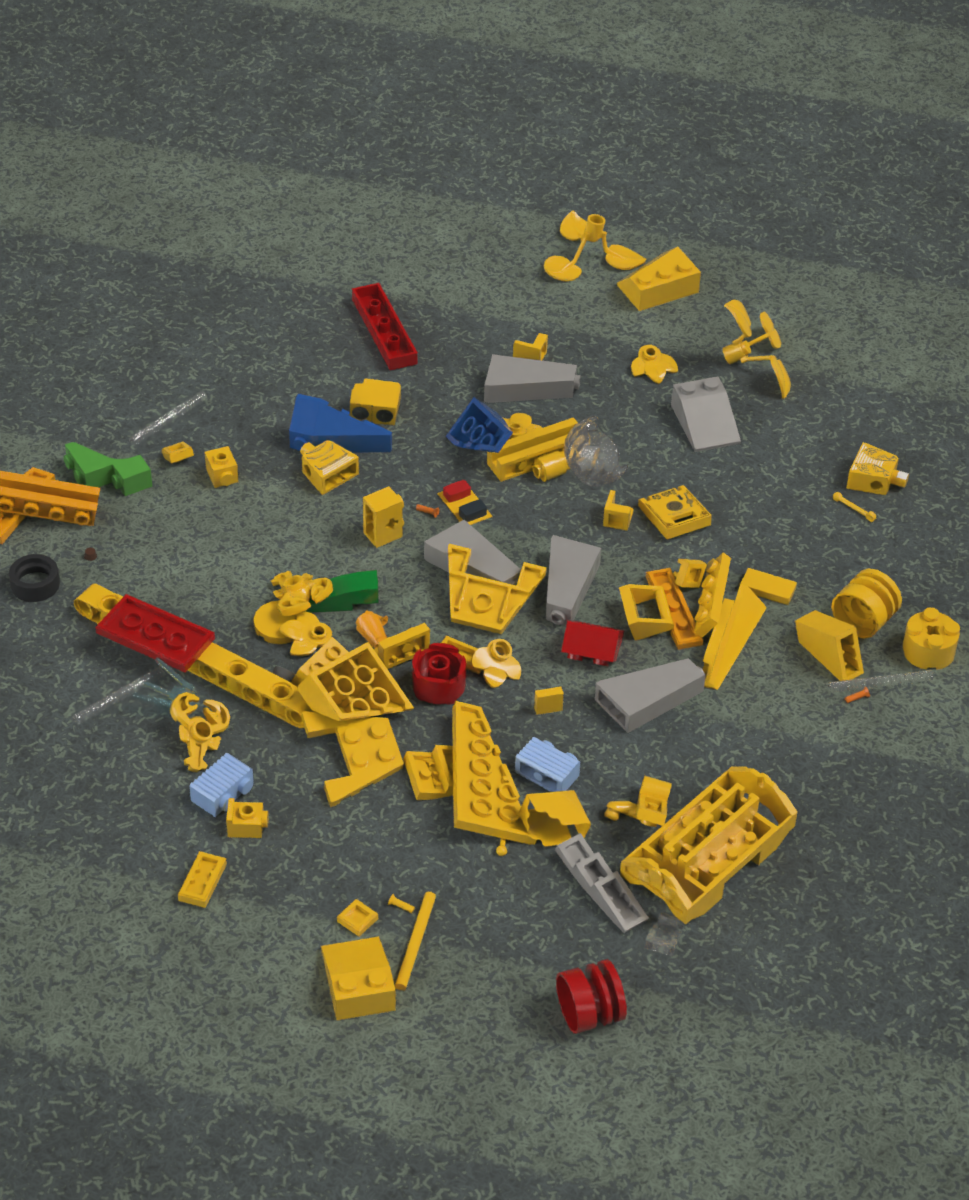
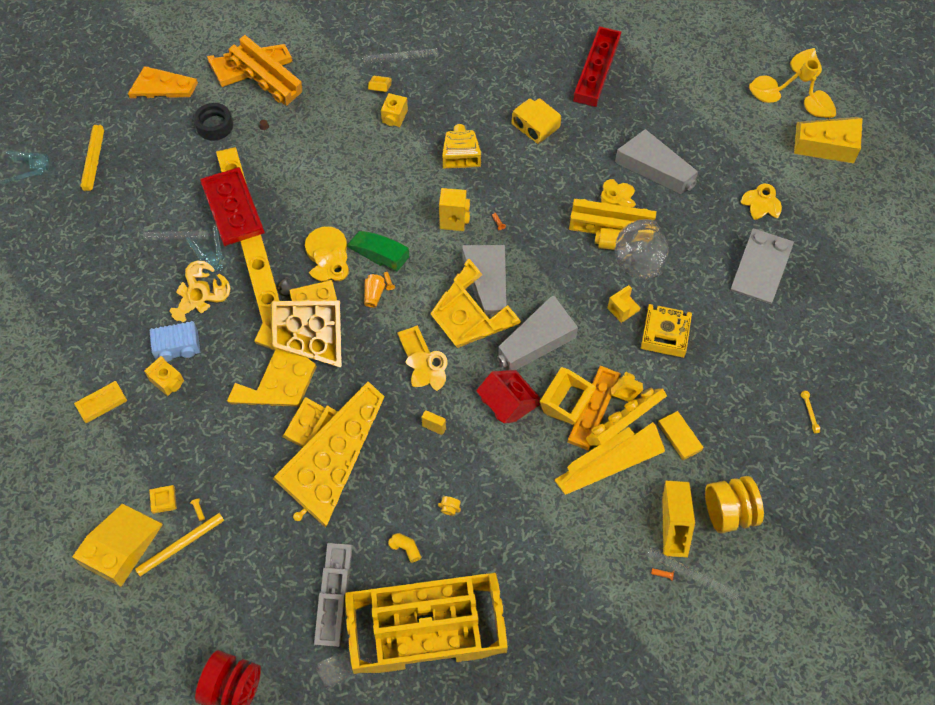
camera: 40 degrees right, 15 degrees up
(97, 470) = (316, 68): bright green arch -> none
(297, 590) = (350, 230): yellow animal -> none
(317, 422) = (476, 116): blue wedge -> none
(403, 646) = (376, 316): yellow bracket -> none
(439, 674) = (378, 352): red brick -> none
(464, 503) = (527, 232): piece -> none
(479, 429) = (582, 181): blue wedge -> none
(531, 351) = (681, 142): yellow panel -> none
(547, 765) = (384, 473): light blue brick -> none
(552, 815) = (347, 518): yellow piece -> none
(630, 755) = (450, 506): none -> yellow plate
(649, 693) = (509, 465): light grey slope -> none
(653, 801) = (419, 559): yellow plate -> none
(740, 349) = (845, 207): yellow plant -> none
(875, 471) = (852, 393): yellow torso -> none
(931, 639) = (769, 559): yellow brick -> none

